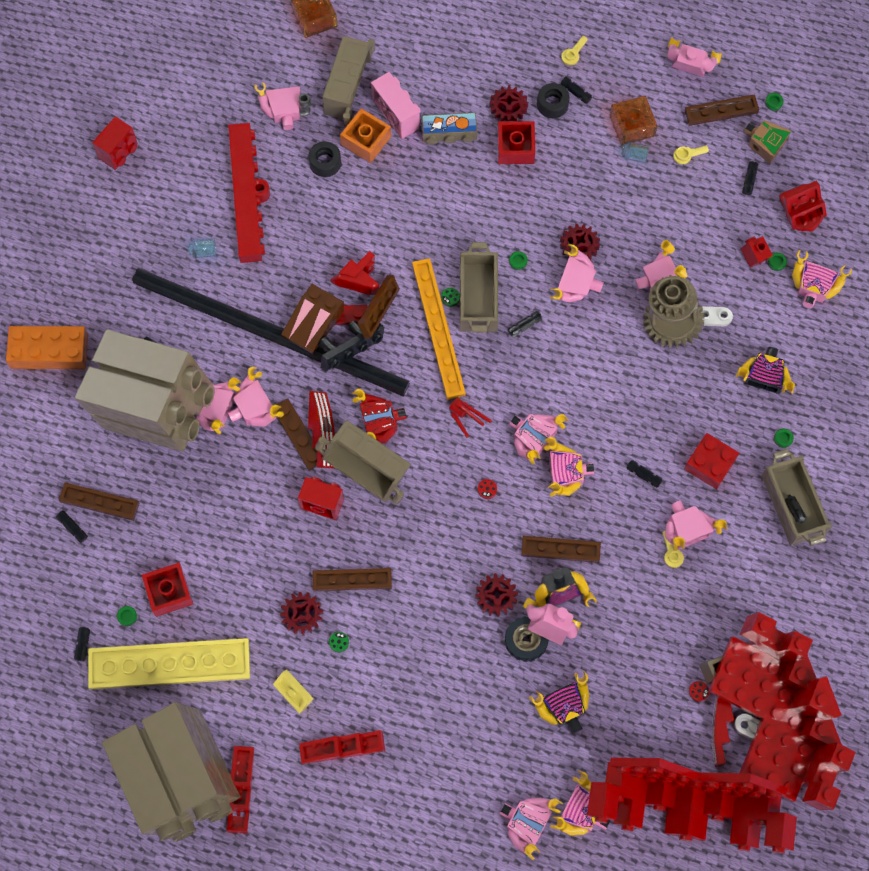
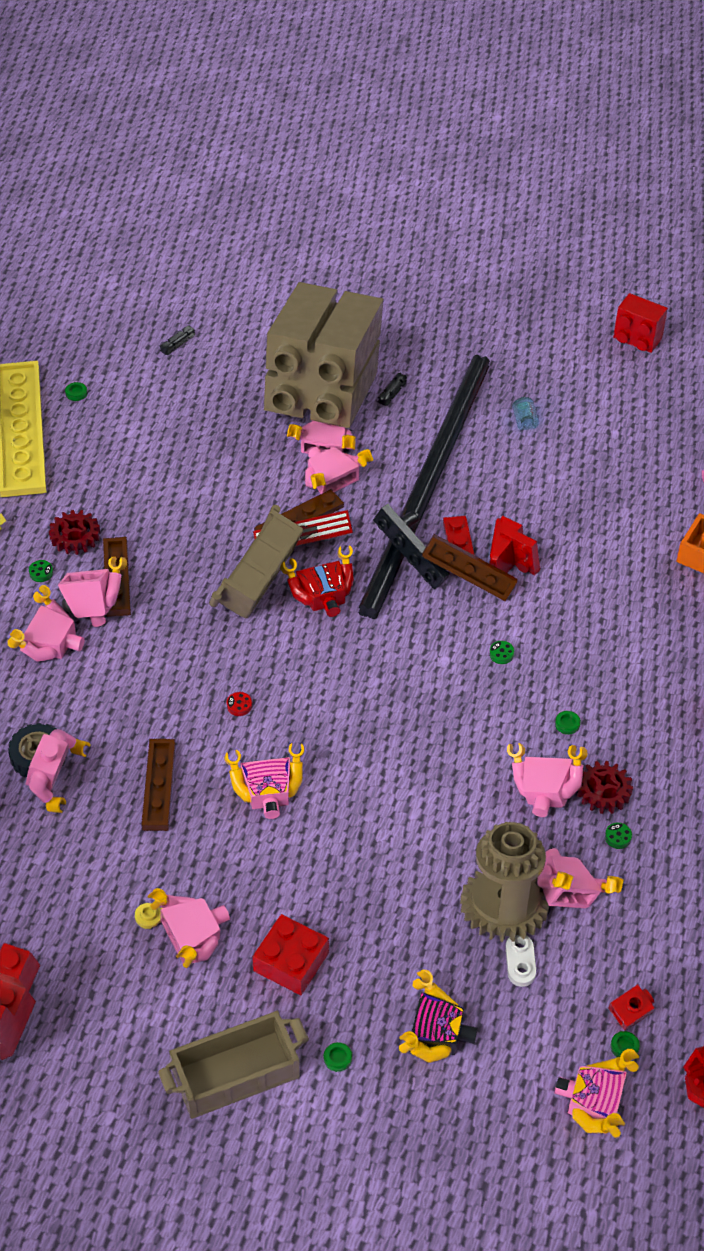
camera: 85 degrees right, 20 degrees down
(47, 347) = (385, 282): orange brick -> none
(81, 648) = (50, 359): black piece -> none
(99, 501) = (206, 357): reddish brown plate -> none
(167, 589) = (102, 413): red brick -> none
(247, 193) = (605, 444): red hinge -> none
(313, 318) = (446, 508): reddish brown slope -> none
(321, 498) = (213, 532): red brick -> none
(324, 169) = (668, 523): black tyre -> none
(384, 593) = (92, 591): none -> bright pink torso
(411, 631) = (48, 633): none -> bright pink torso
(438, 329) = (453, 640): light orange plate -> none
(460, 409) = (344, 668): red plant -> none
(478, 290) = (509, 673): dark tan container -> none
(488, 595) = (107, 720): dark red gear -> none
(525, 323) = (475, 733): black axle -> none
(532, 432) = (320, 743): bright pink torso -> none
(562, 587) = (102, 780): torso -> none
(617, 241) = (618, 835): none -> green tile
(644, 473) = (270, 878): black axle -> none
(795, 509) = (218, 1056): black axle -> none

